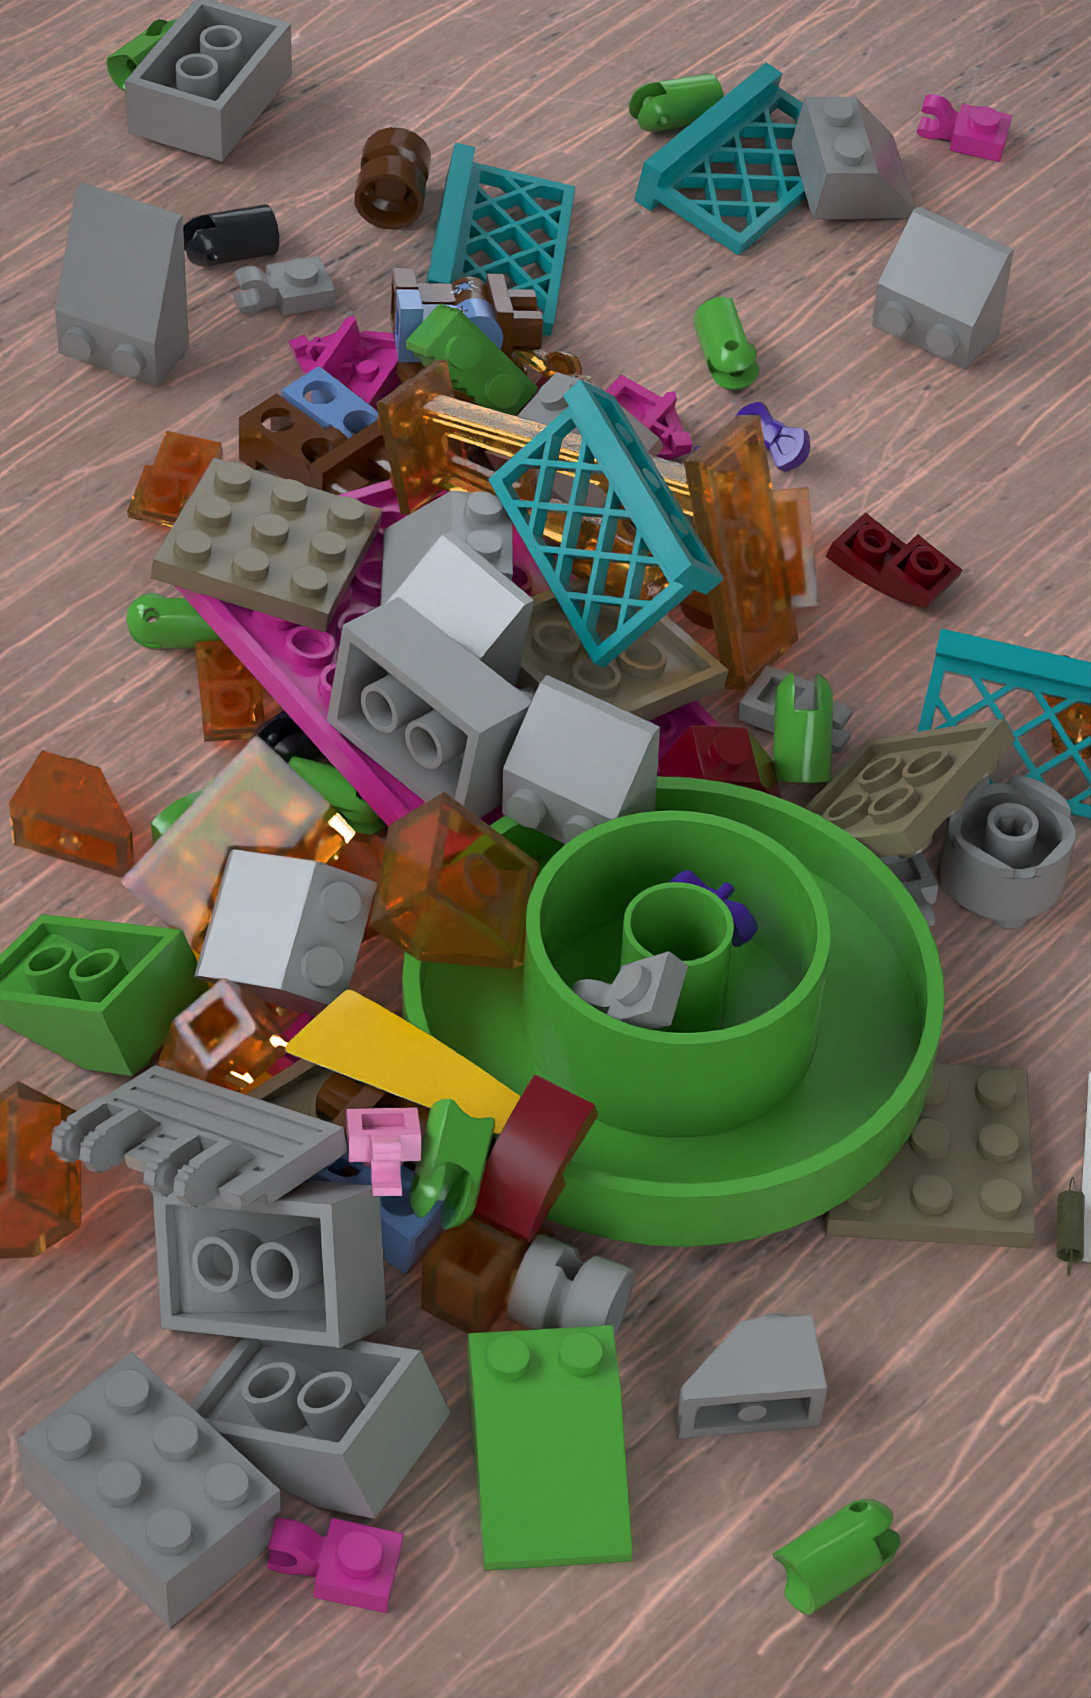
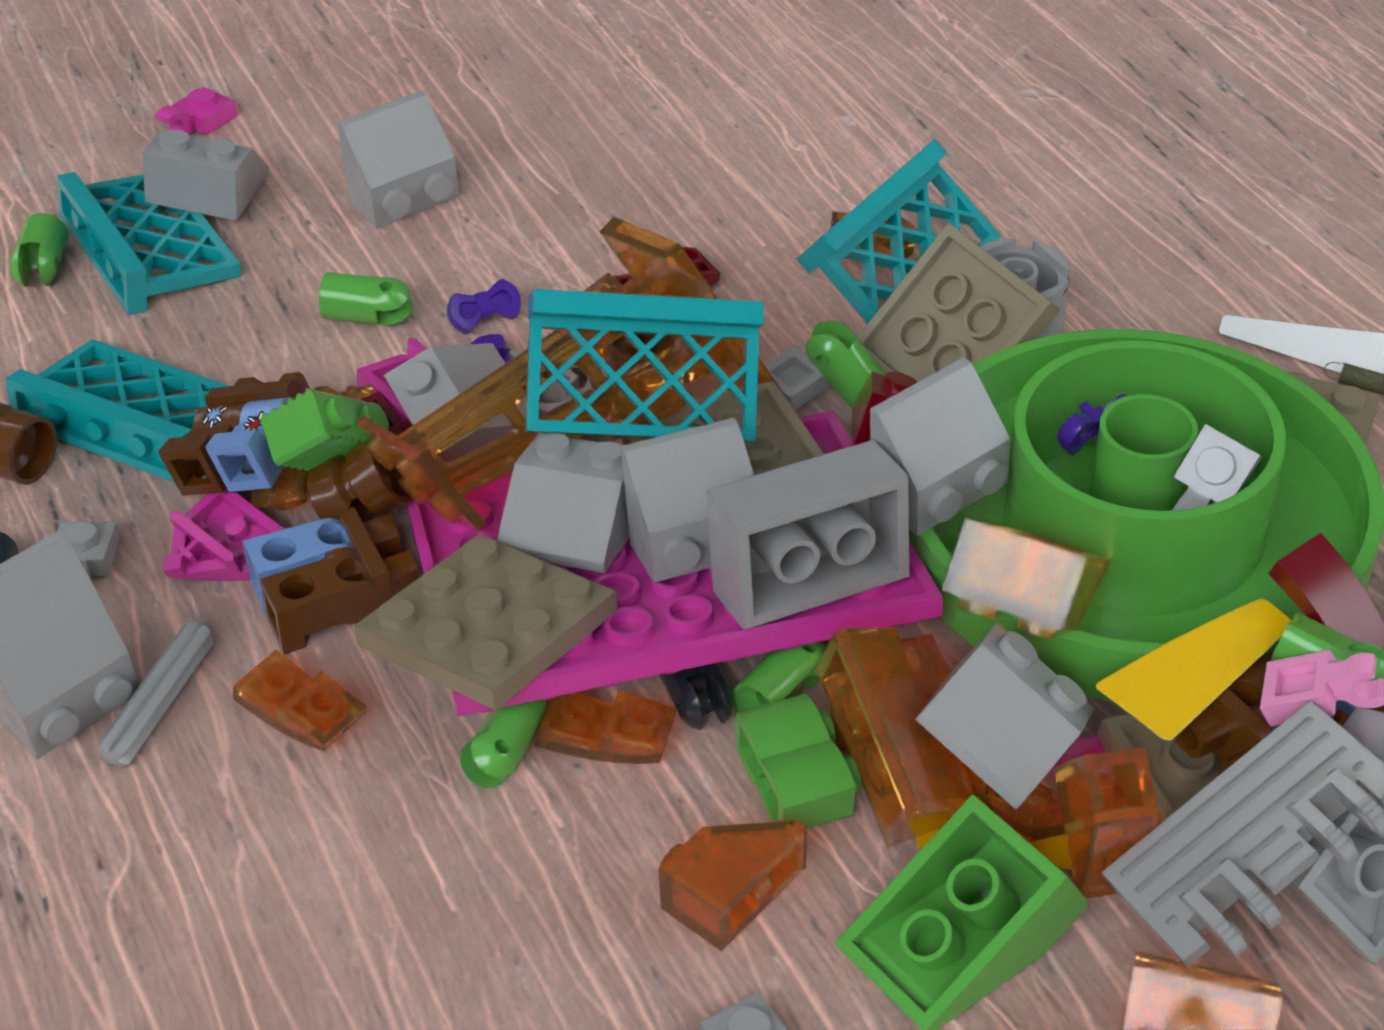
camera: 65 degrees left, 5 degrees down
(149, 391) = (155, 694): none -> light grey axle

